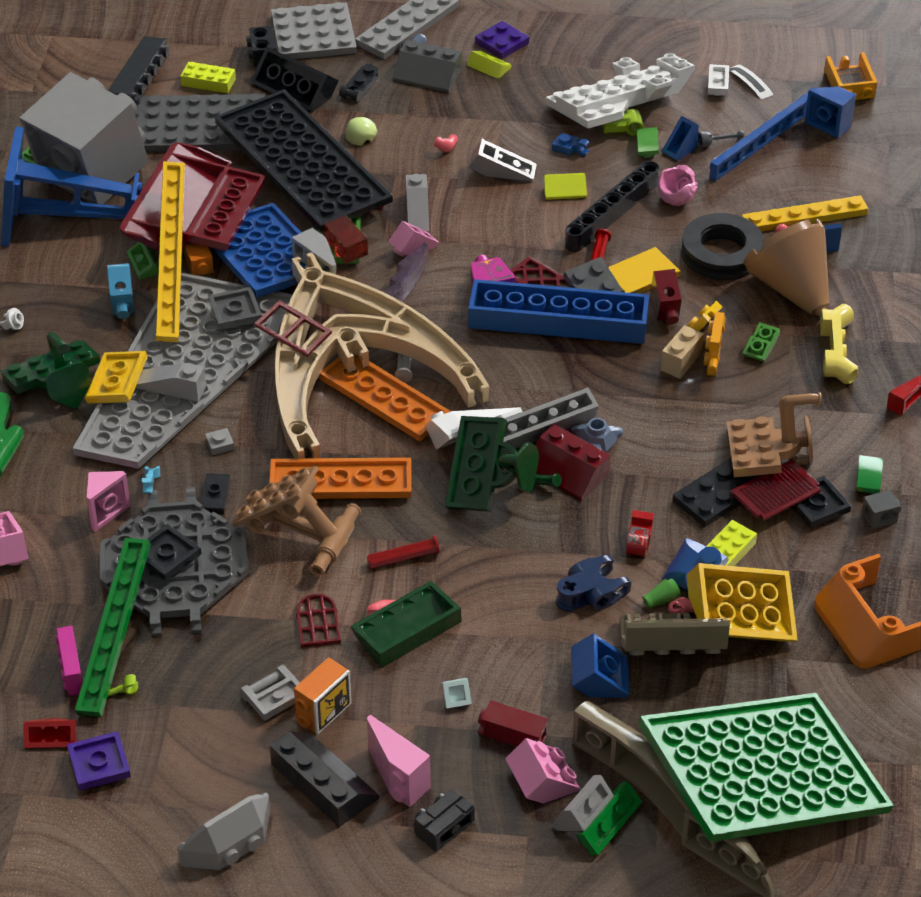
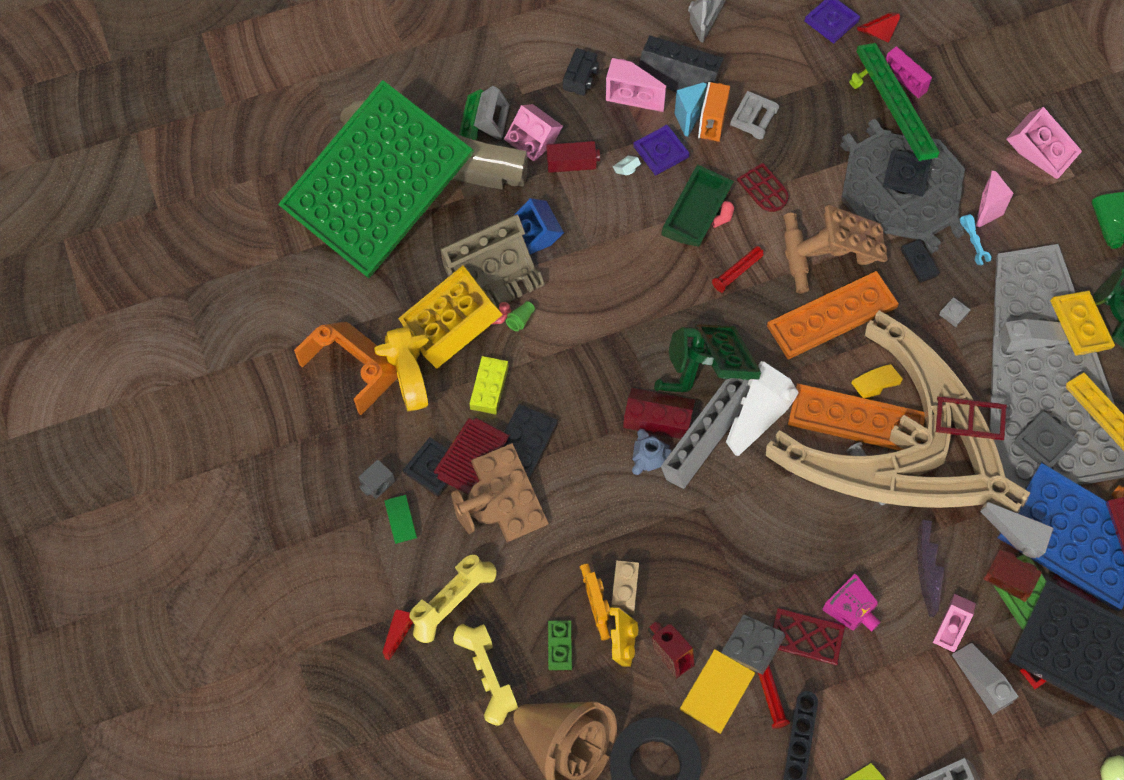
camera: 155 degrees right, 20 degrees up
(342, 410) = (875, 380): none -> yellow slope
(343, 711) = (689, 106): none -> medium azure slope
(405, 696) = (661, 150): none -> dark purple plate
(558, 311) = (761, 581): blue brick -> none
(590, 586) = (579, 297): dark blue piece -> none
(640, 533) = (564, 364): red leg -> none
(688, 557) = (503, 346): blue slope -> none
(810, 580) = (402, 352): none -> yellow animal
(848, 394) = (428, 615): none -> light yellow plate

